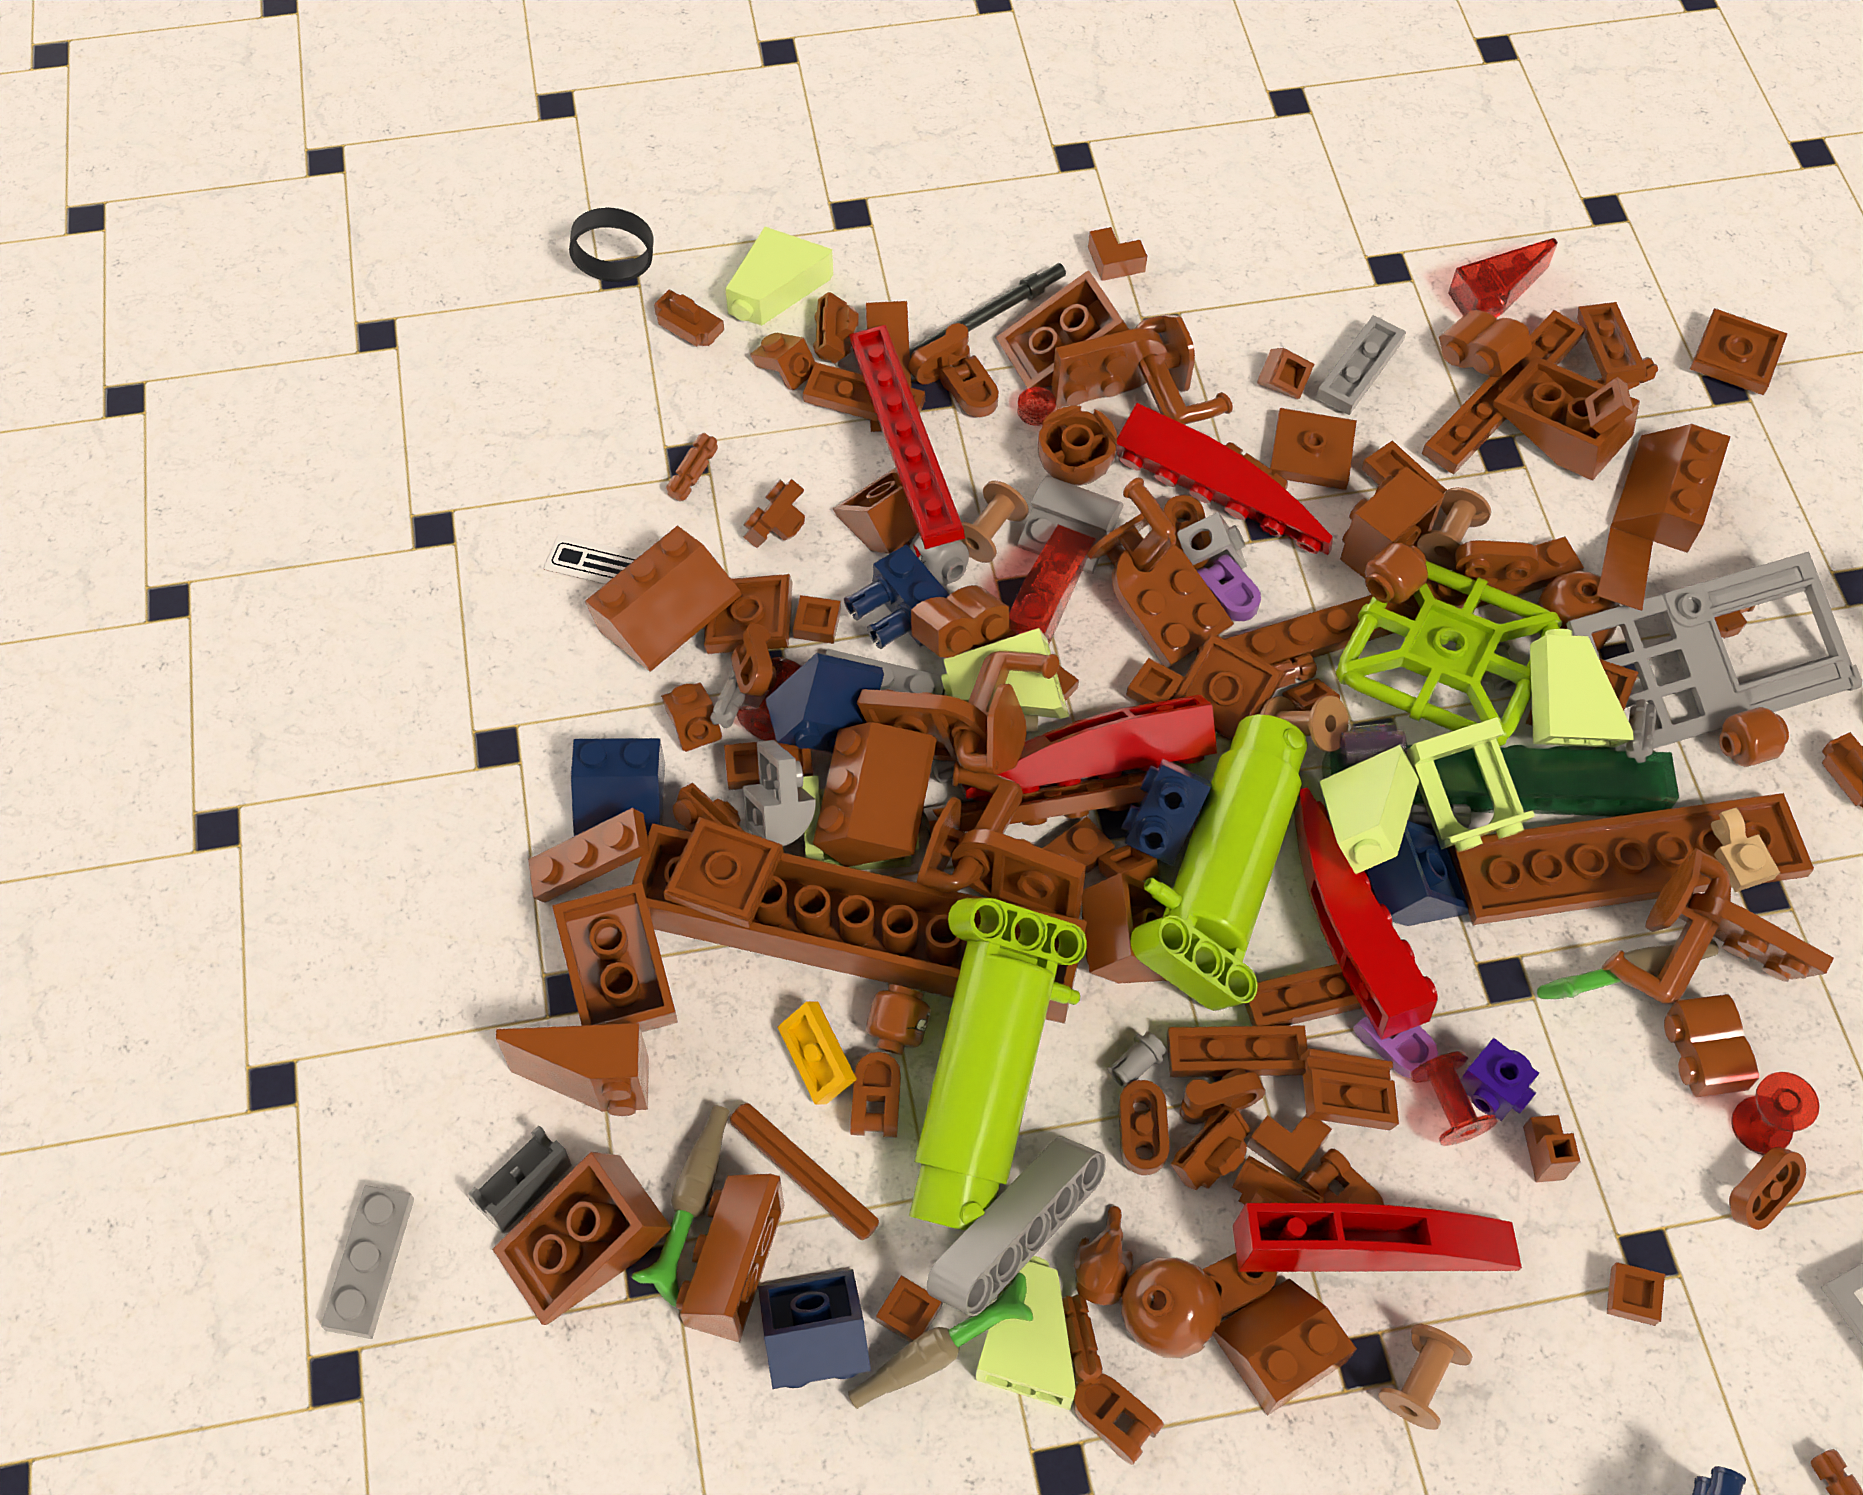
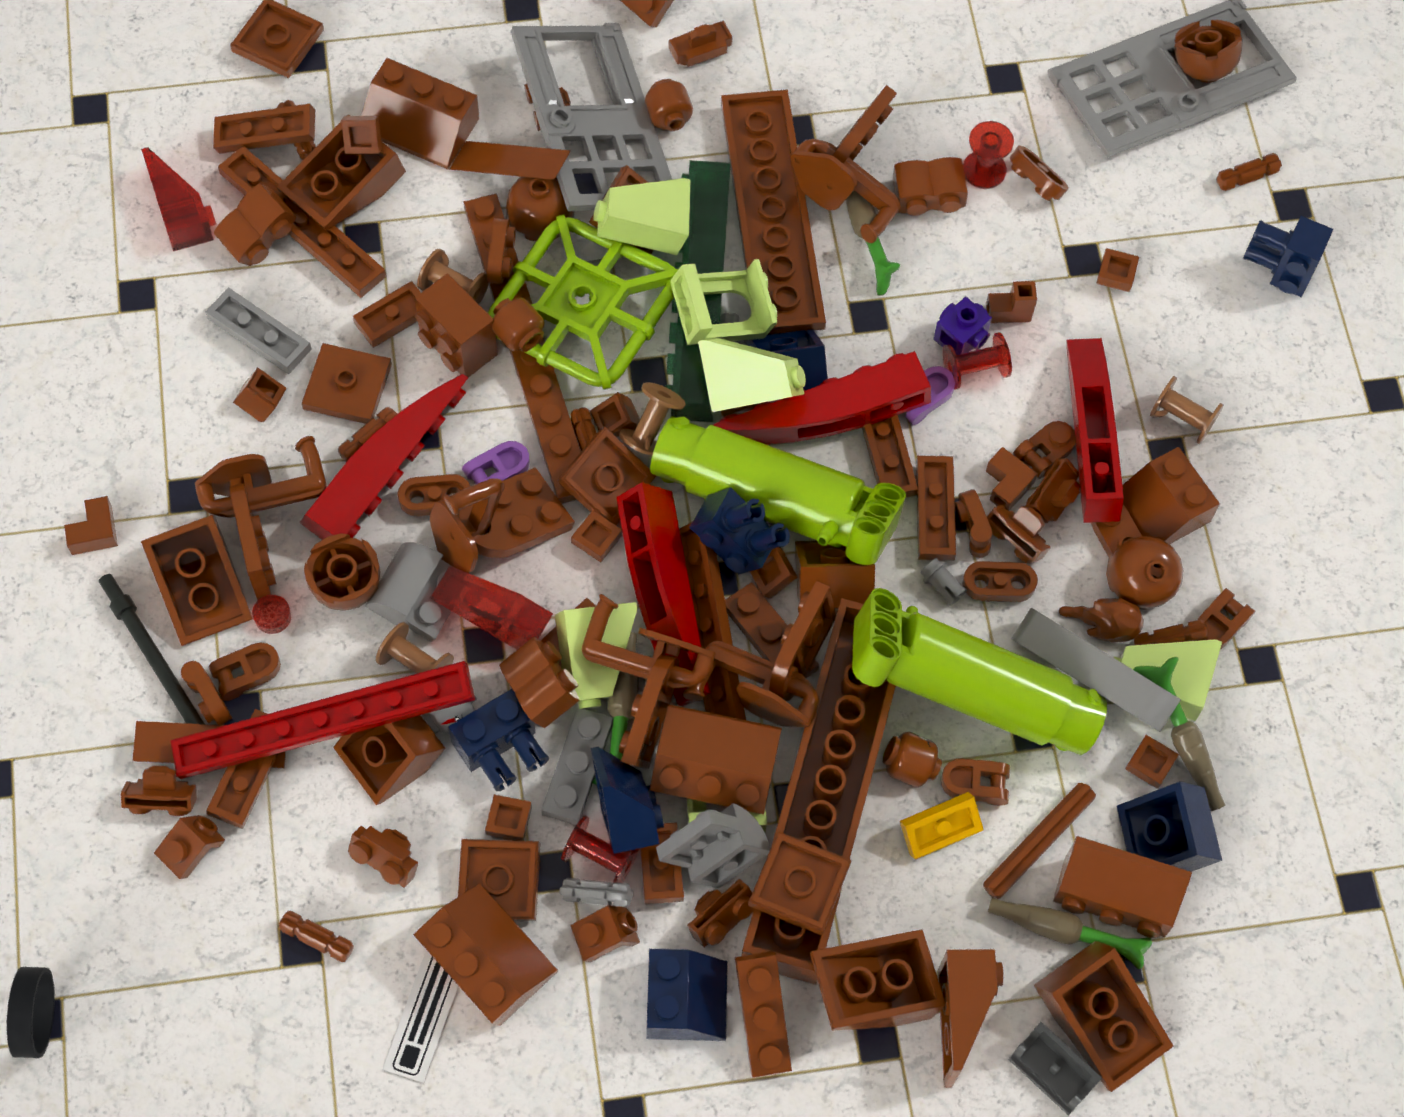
camera: 90 degrees left, 5 degrees up
(687, 319) = (126, 941): dark orange piece -> none
(753, 662) = (579, 864): dark orange plate -> none
(776, 276) = (80, 852): yellowish green slope -> none
(1222, 539) = (450, 460): light grey bracket -> none
(1349, 1090) = (970, 430): dark orange plate -> none
(1369, 741) = (685, 367): brick -> none
(1642, 722) = (654, 174): light grey axle -> none
(1743, 857) = (779, 130): tan plate -> none

